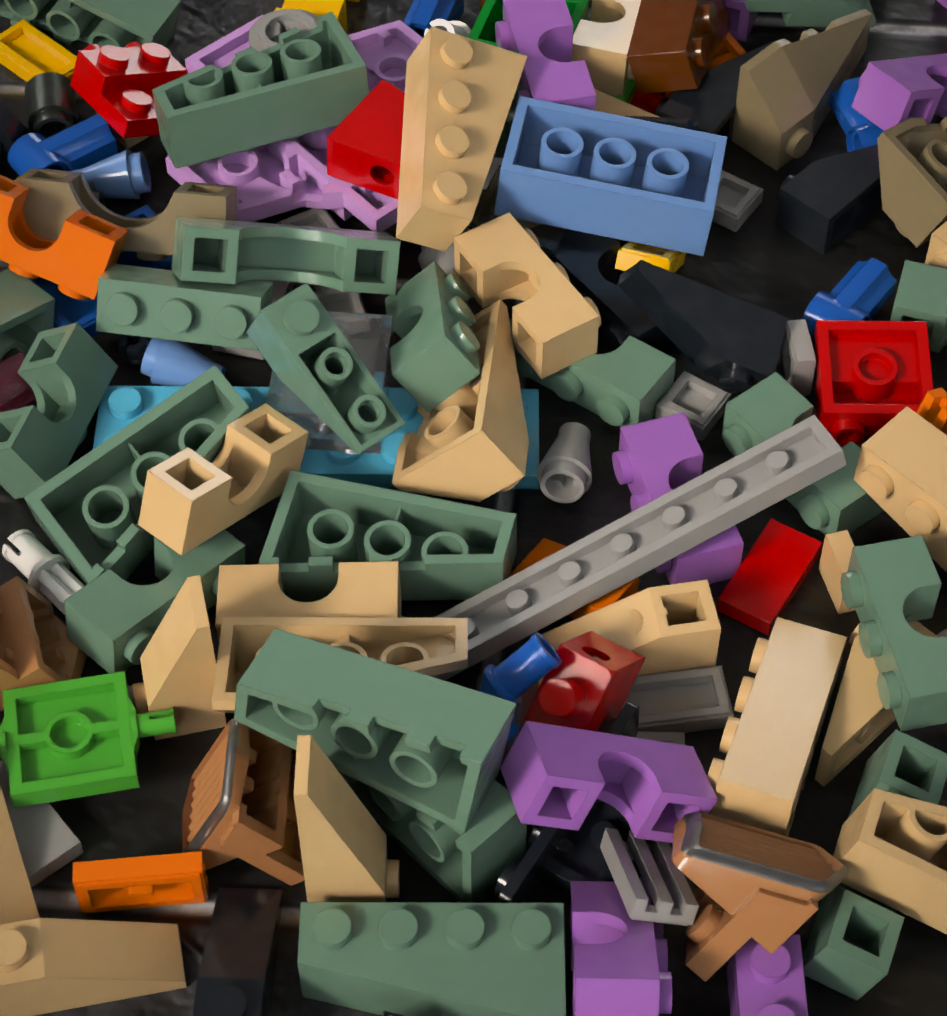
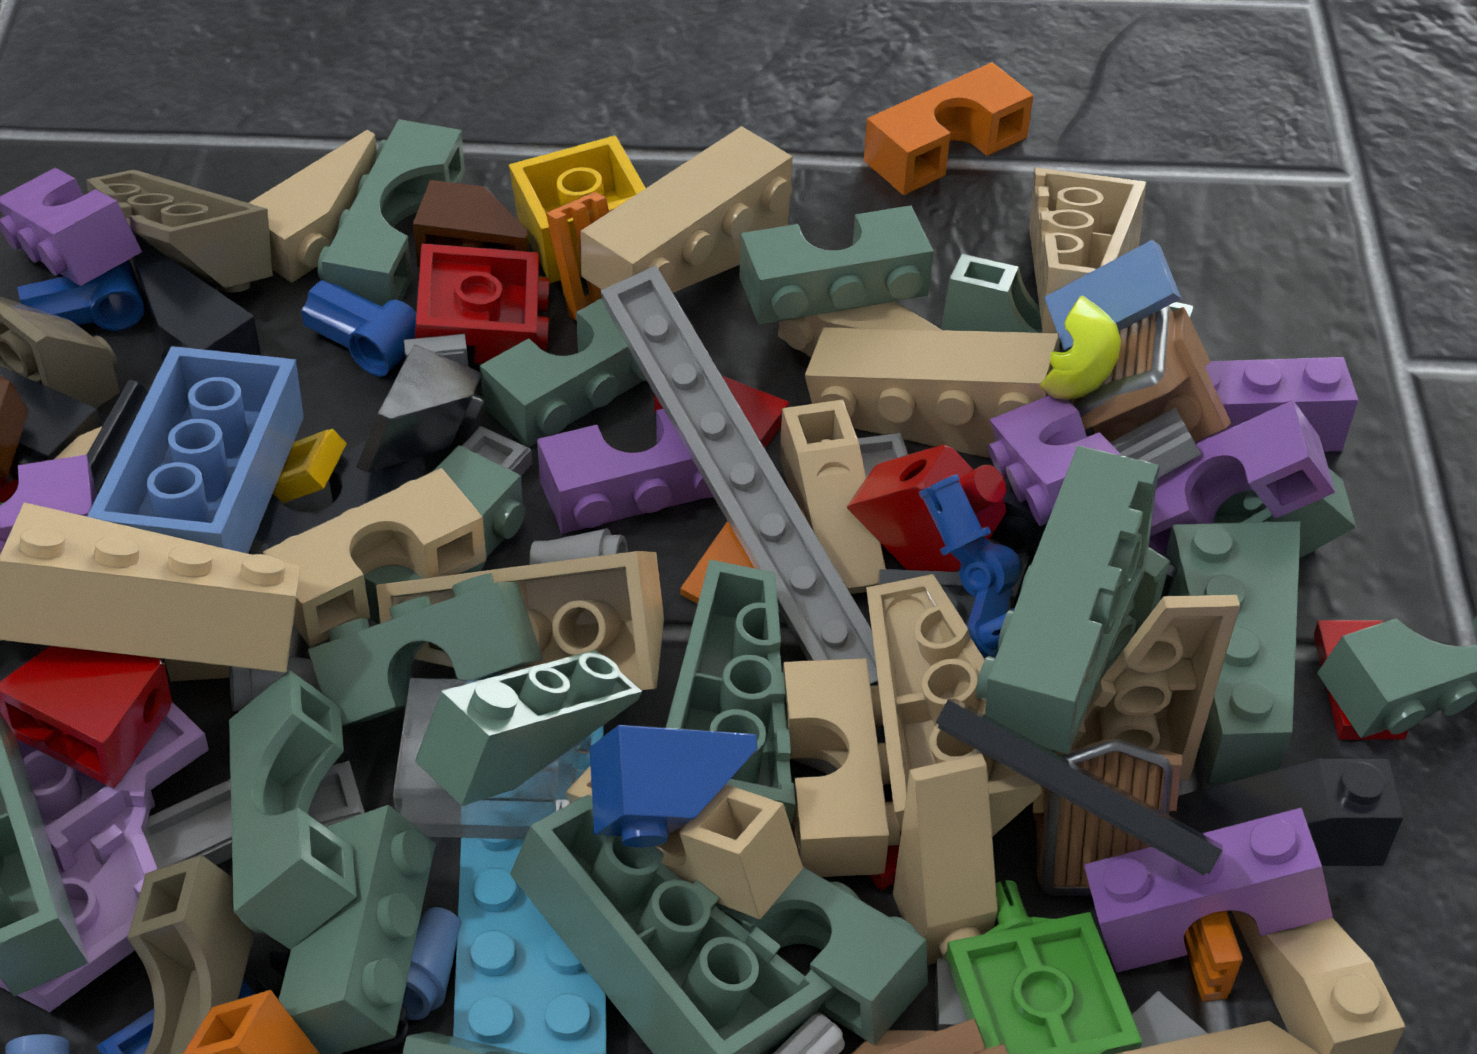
camera: 95 degrees left, 5 degrees down
(139, 868) = (1152, 899): none -> medium lavender arch
(181, 714) = (1079, 786): none -> black tile
(237, 433) = (659, 778): none -> blue slope
(730, 786) = (1091, 356): none -> neon yellow hair
(824, 839) = (1123, 288): none -> medium blue tile
(834, 562) = (729, 340): tan tile -> none

